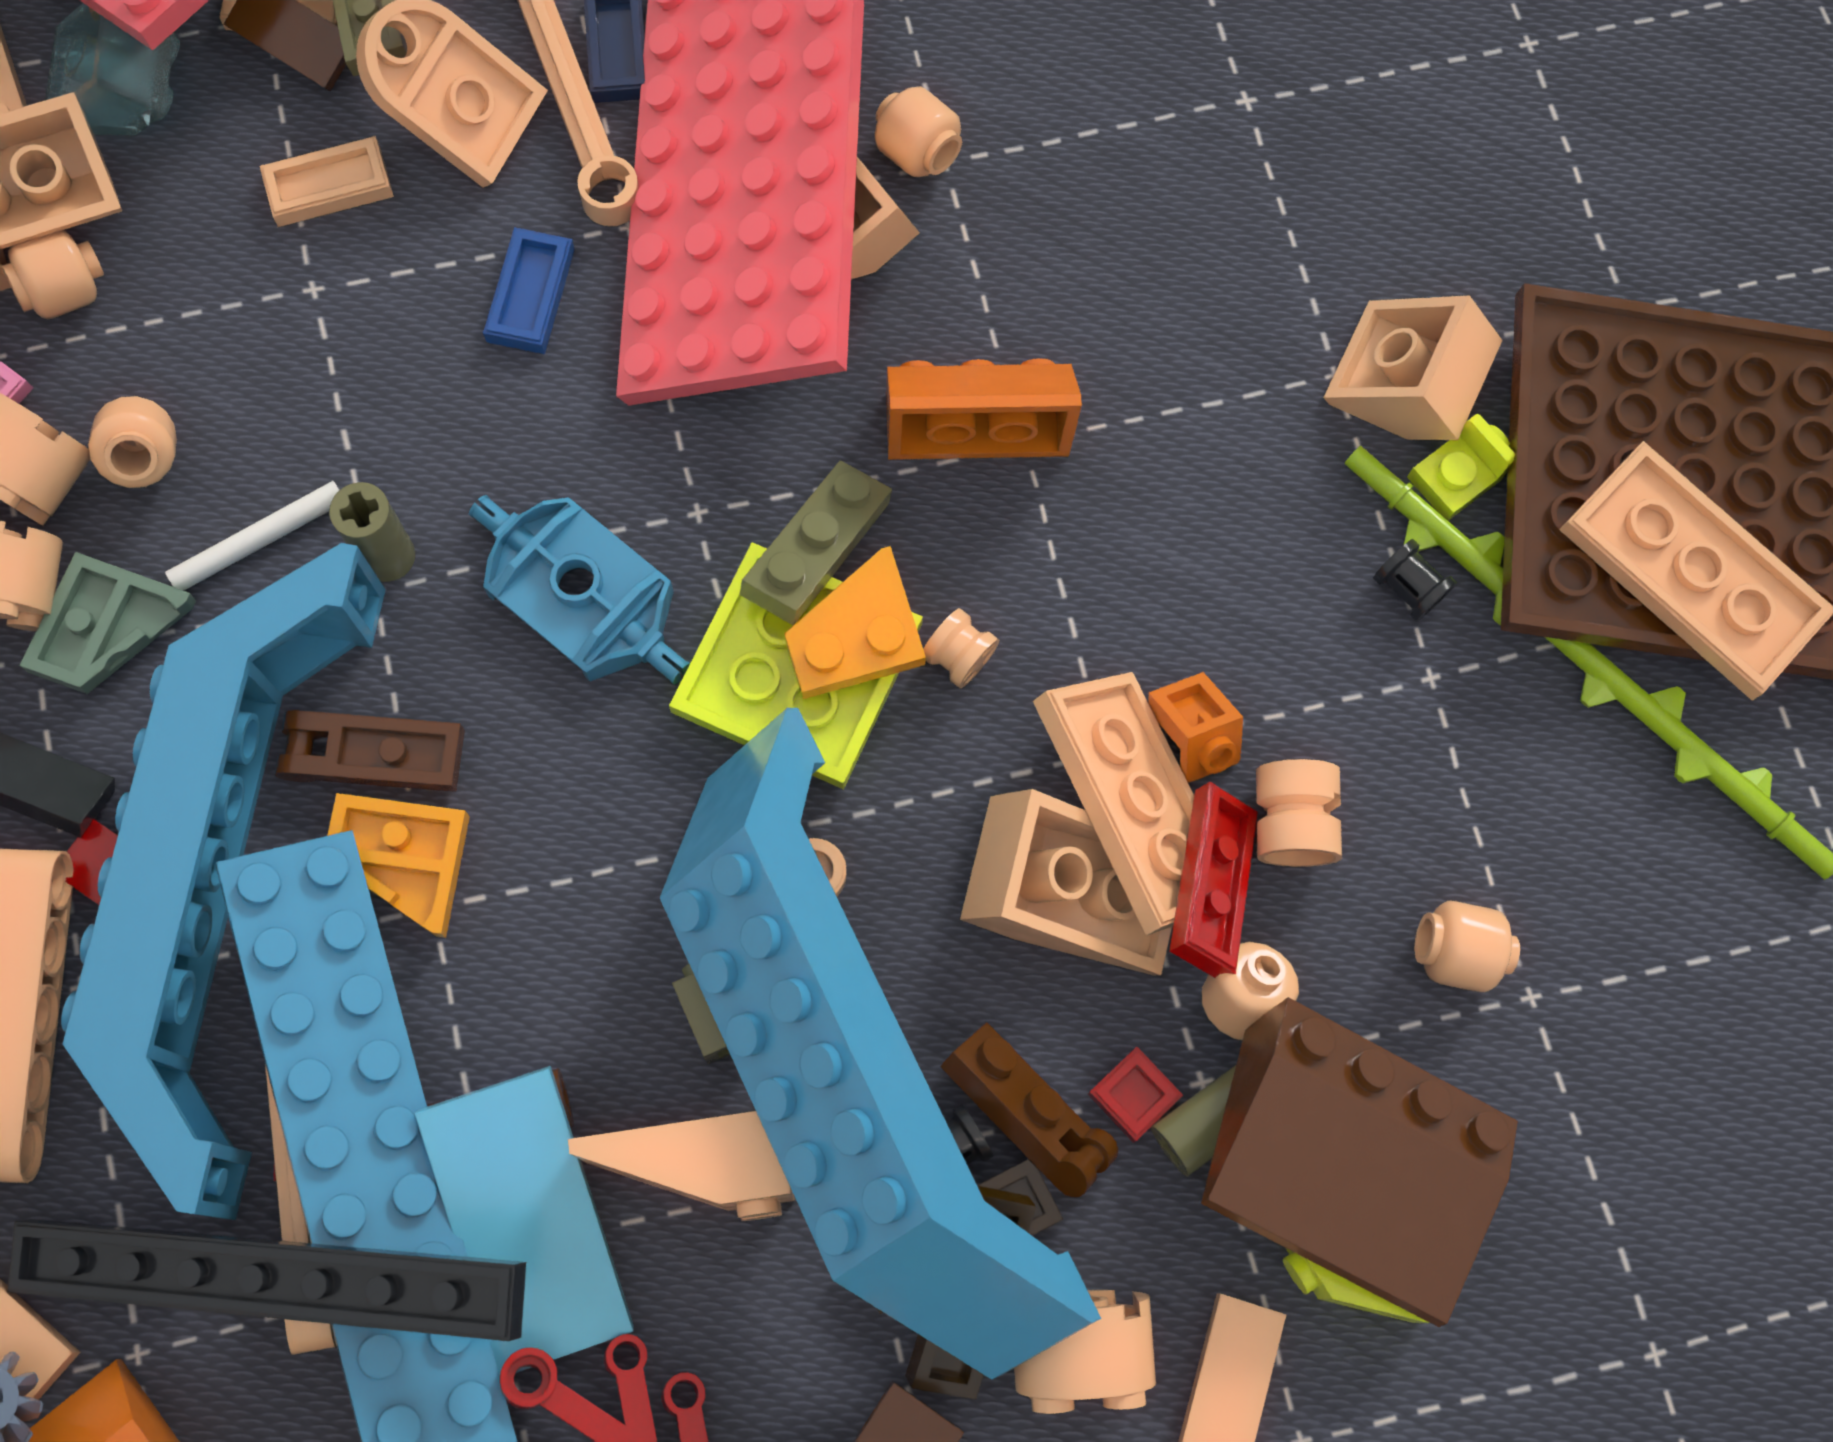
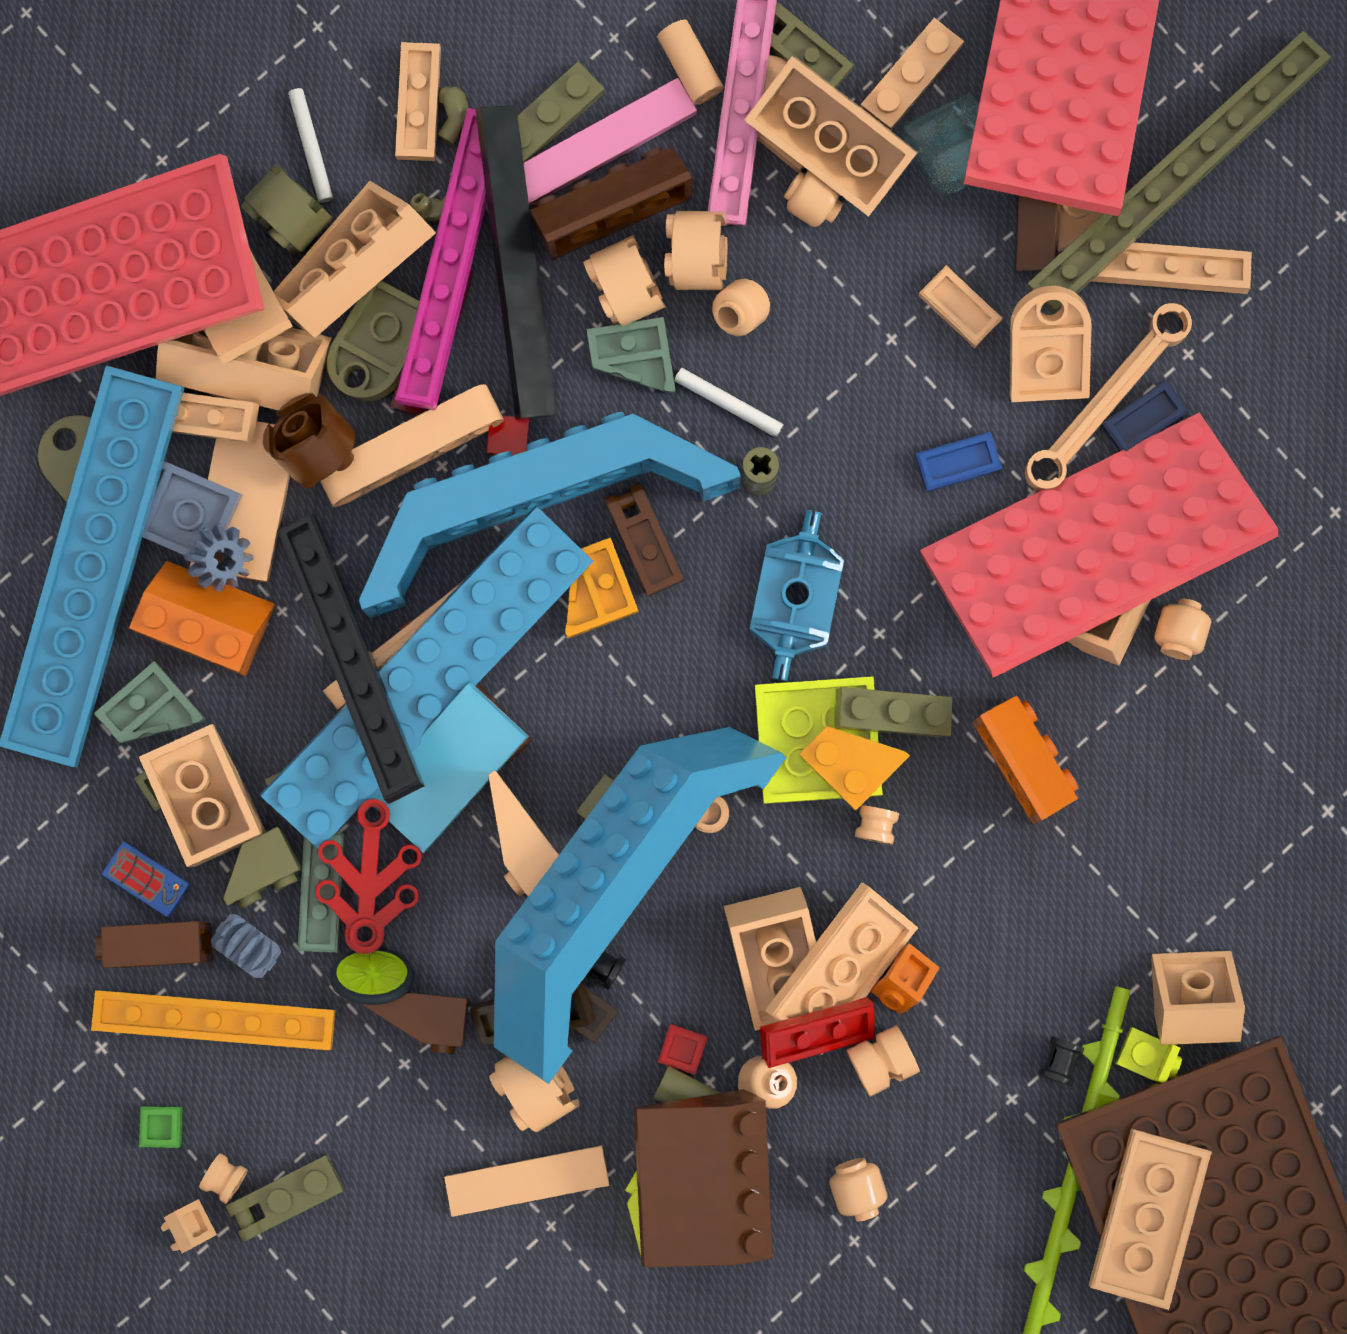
camera: 70 degrees right, 10 degrees up
(1030, 1112) = (641, 997): reddish brown plate -> none

